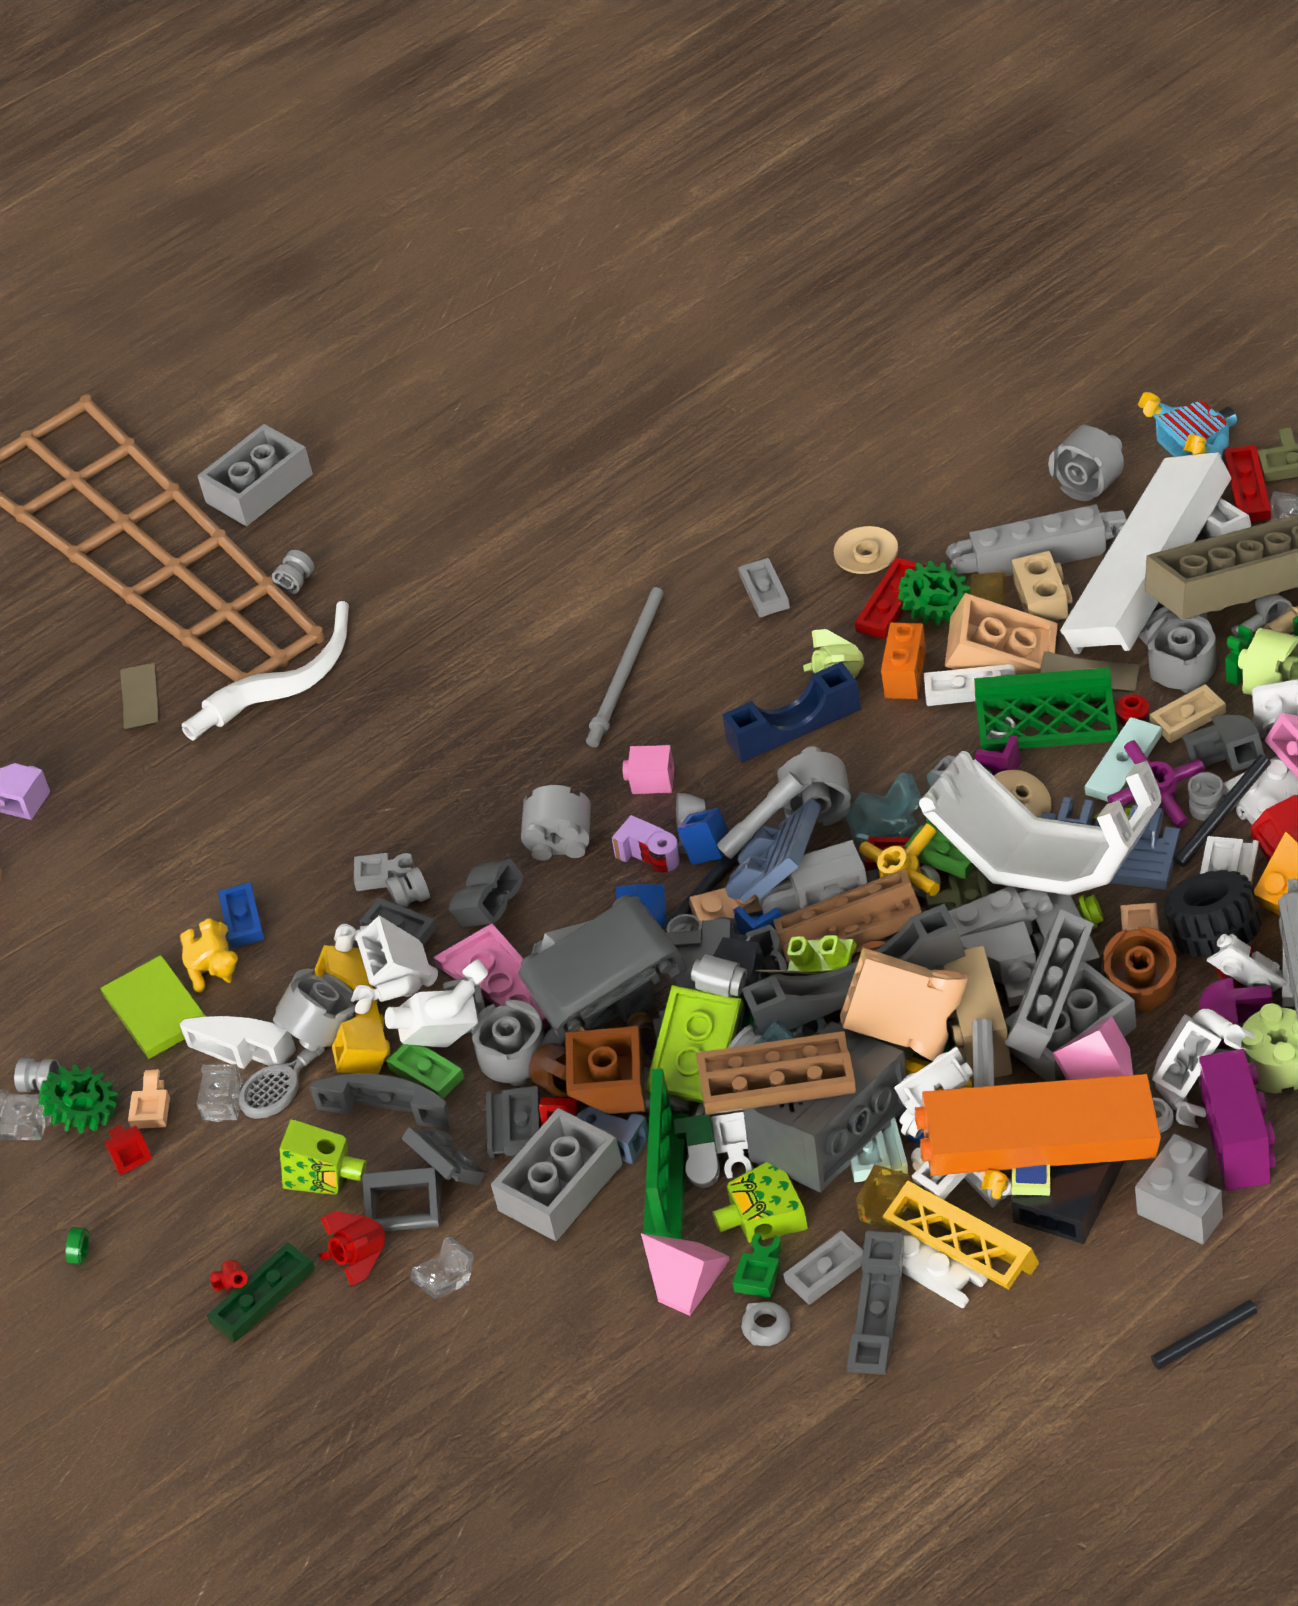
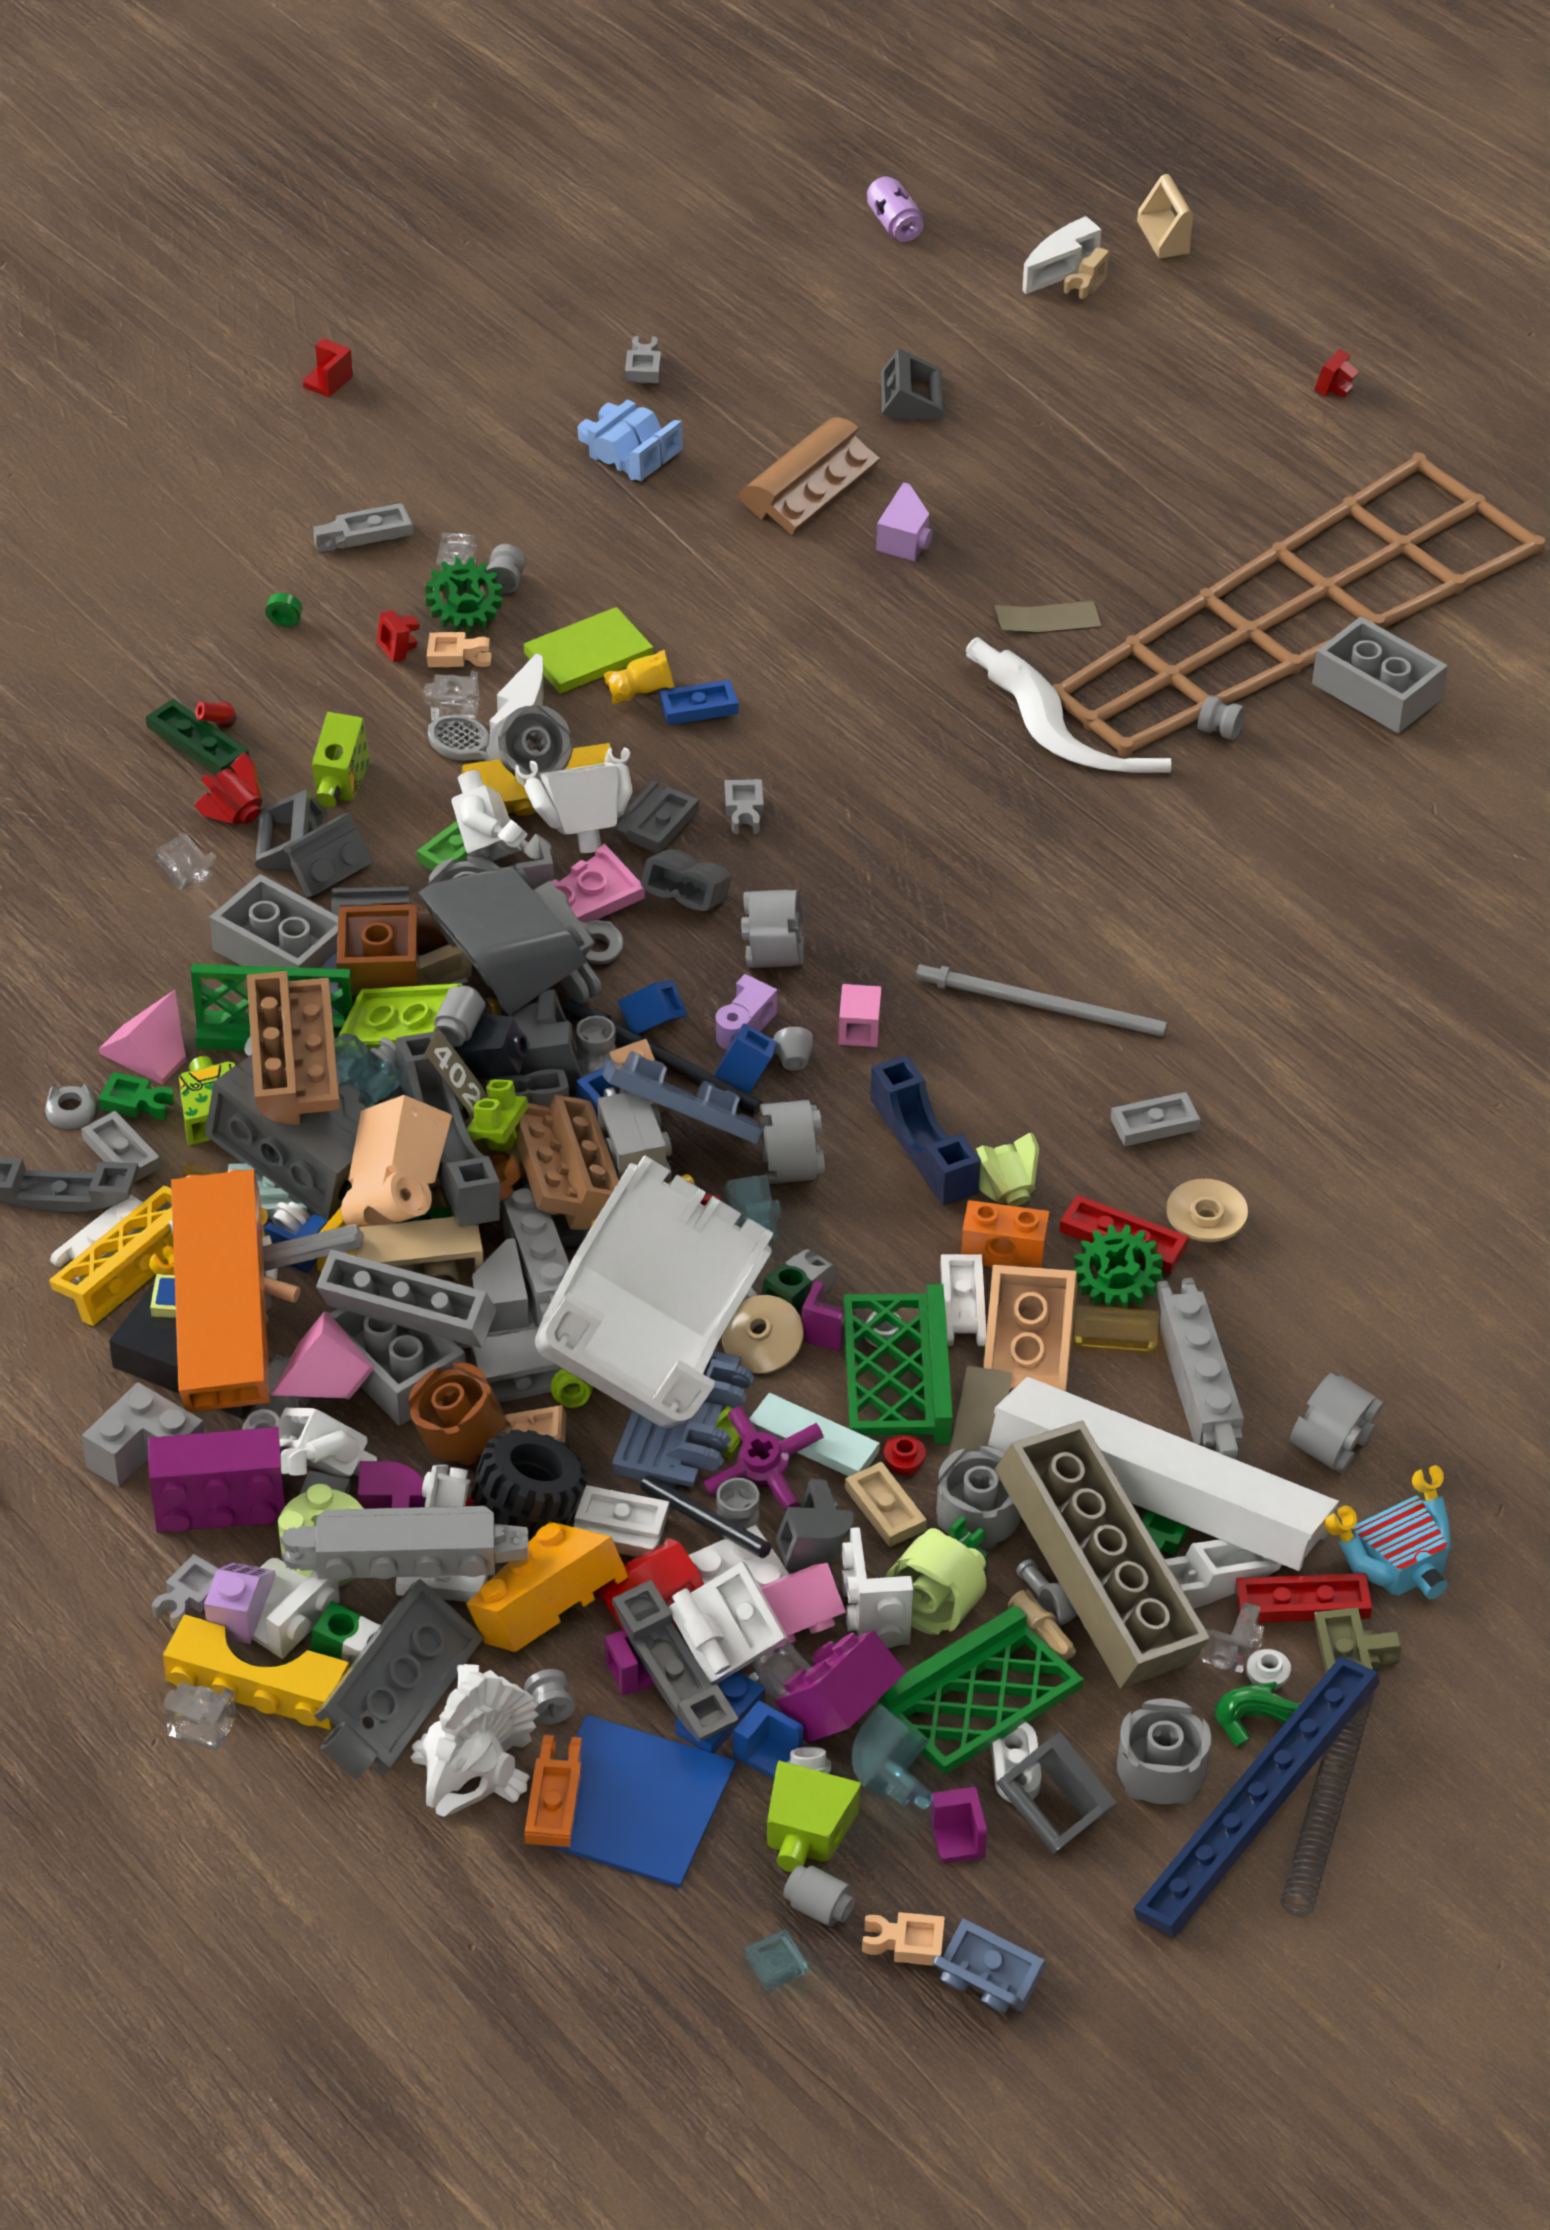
camera: 80 degrees right, 0 degrees up
(343, 1091) = (404, 840): dark grey slope -> none
(400, 891) = (710, 824): light grey wheel -> none
(744, 830) = (748, 1088): light grey piece -> none
(946, 1071) = (303, 1208): white hinge -> none
(1041, 587) = (1121, 1371): tan brick -> none

